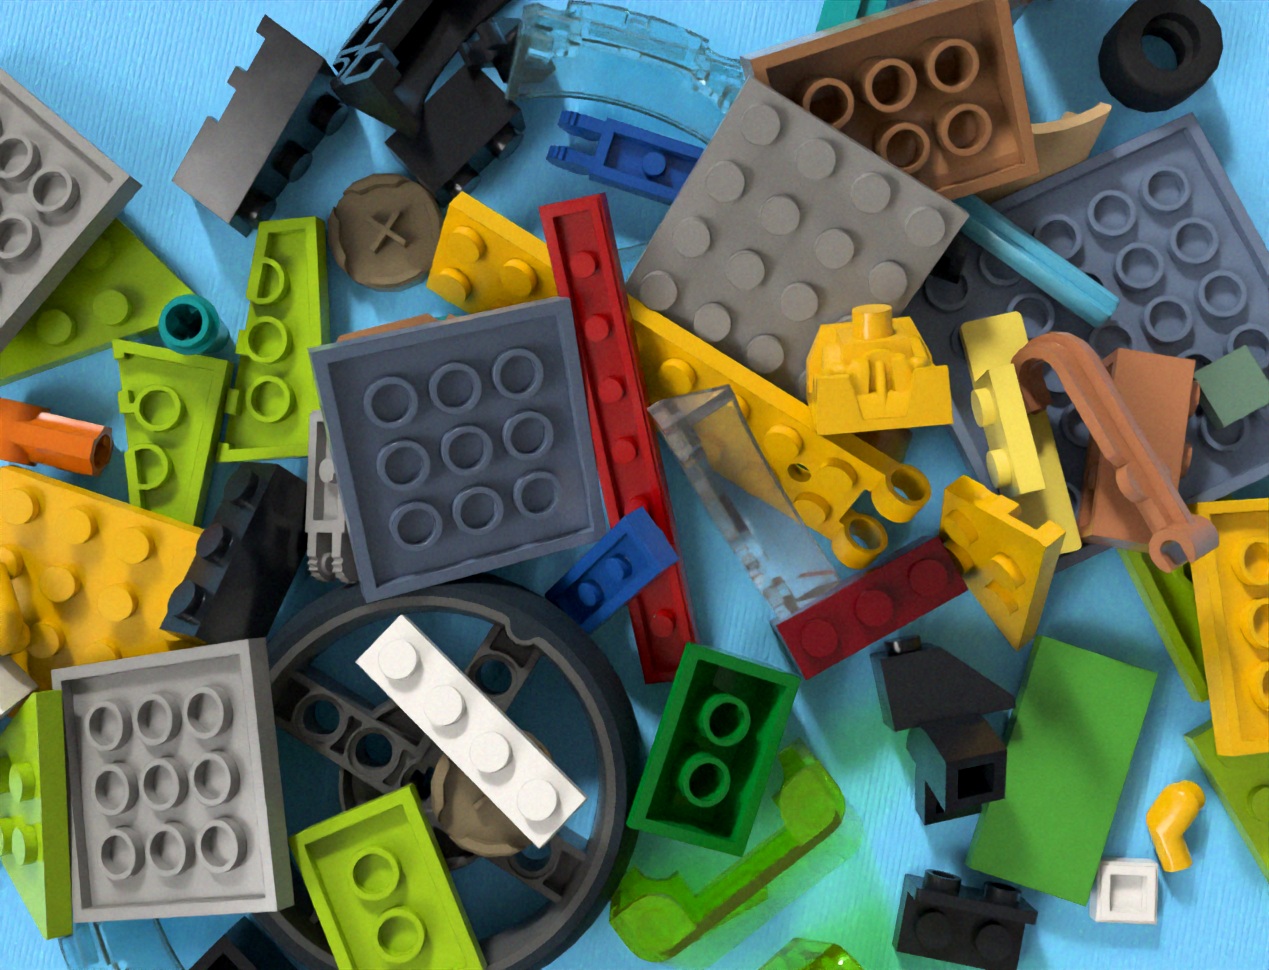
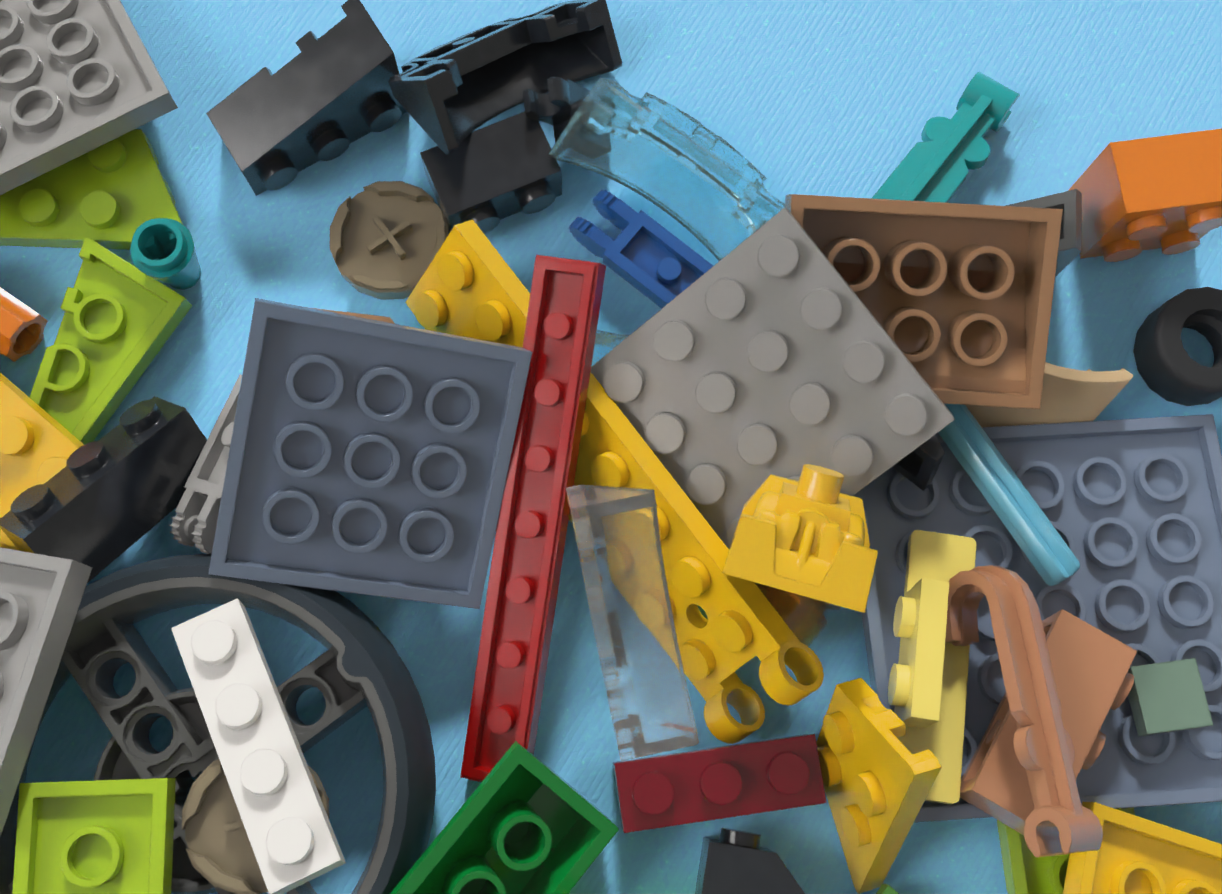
camera: 10 degrees right, 10 degrees down
(284, 318) = (267, 263): lime wing -> none
(613, 571) = (470, 642): blue plate -> none

